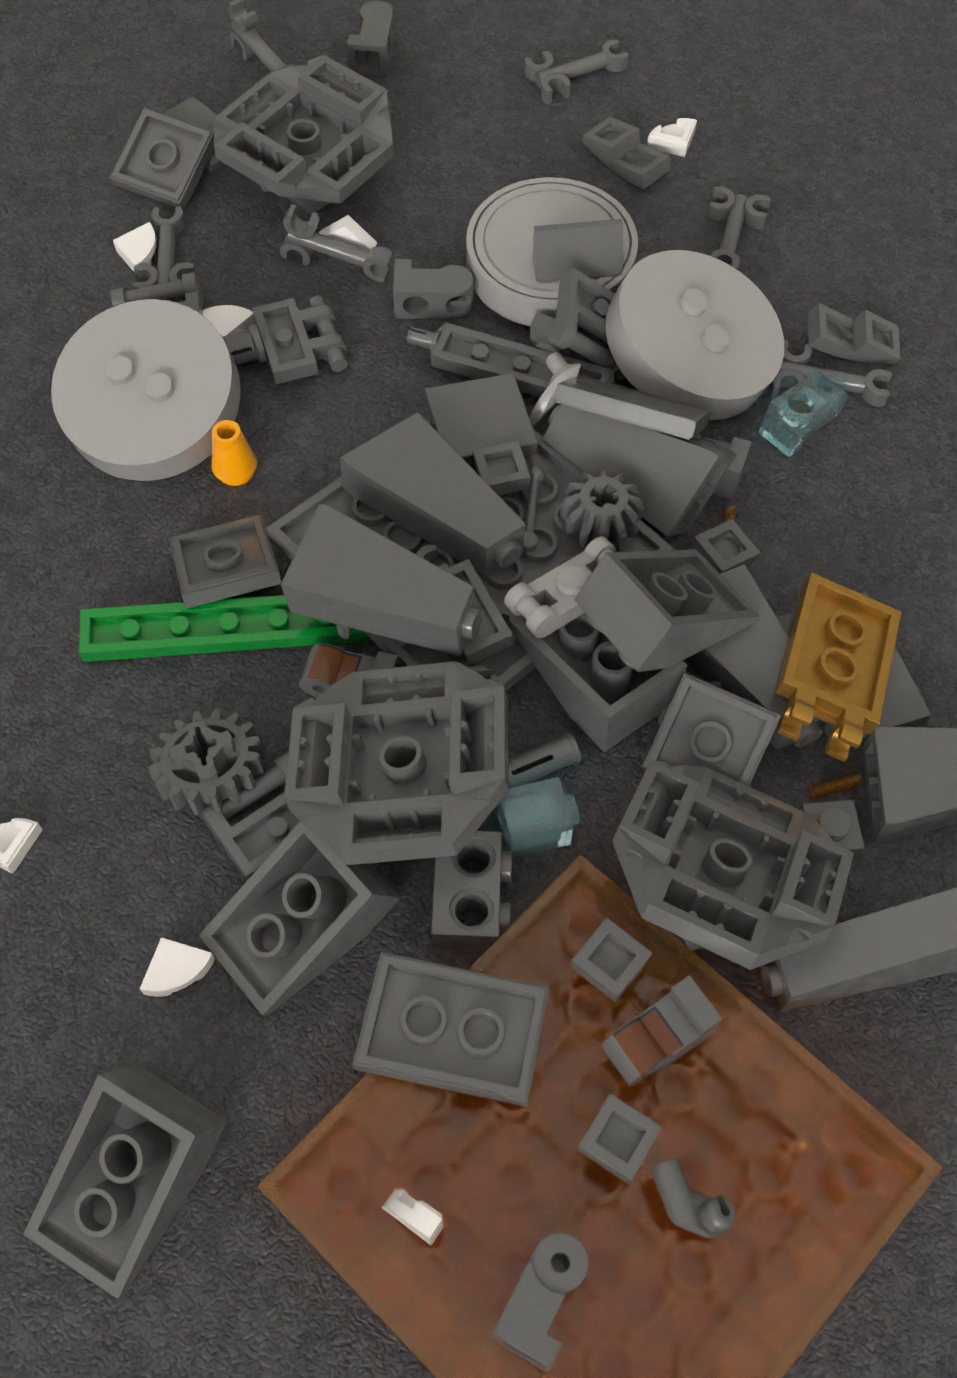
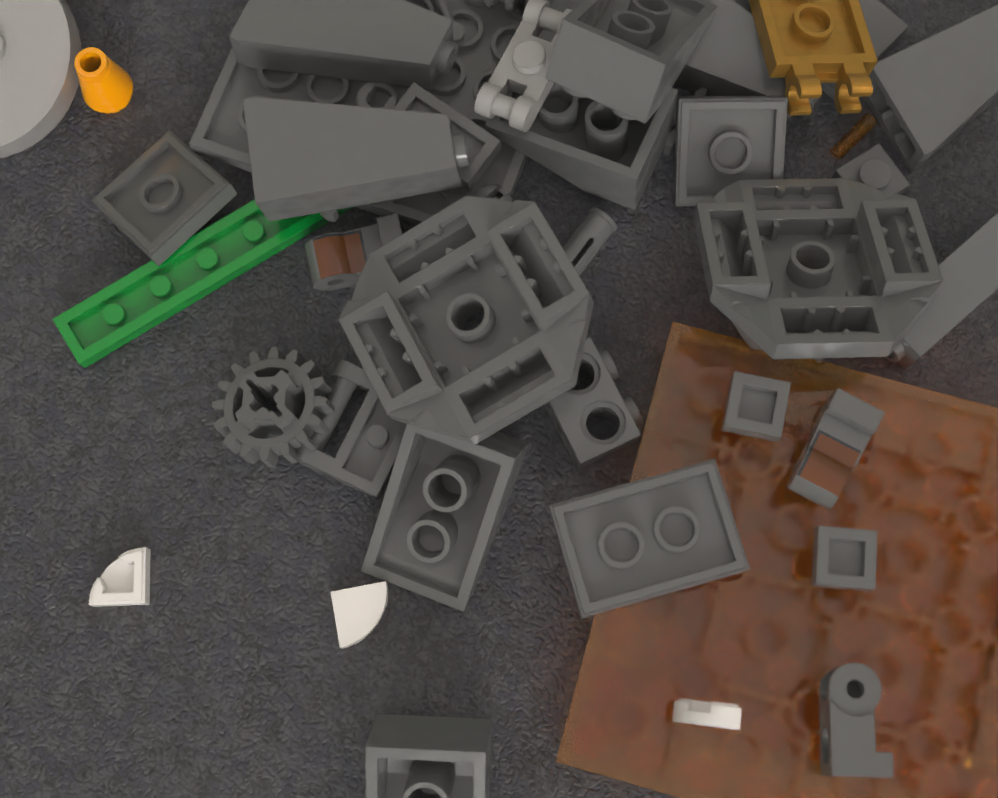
camera: 25 degrees left, 15 degrees up
(537, 817) = (618, 299): clear light blue brick -> none
(688, 1208) = (929, 584): dark grey arm -> none

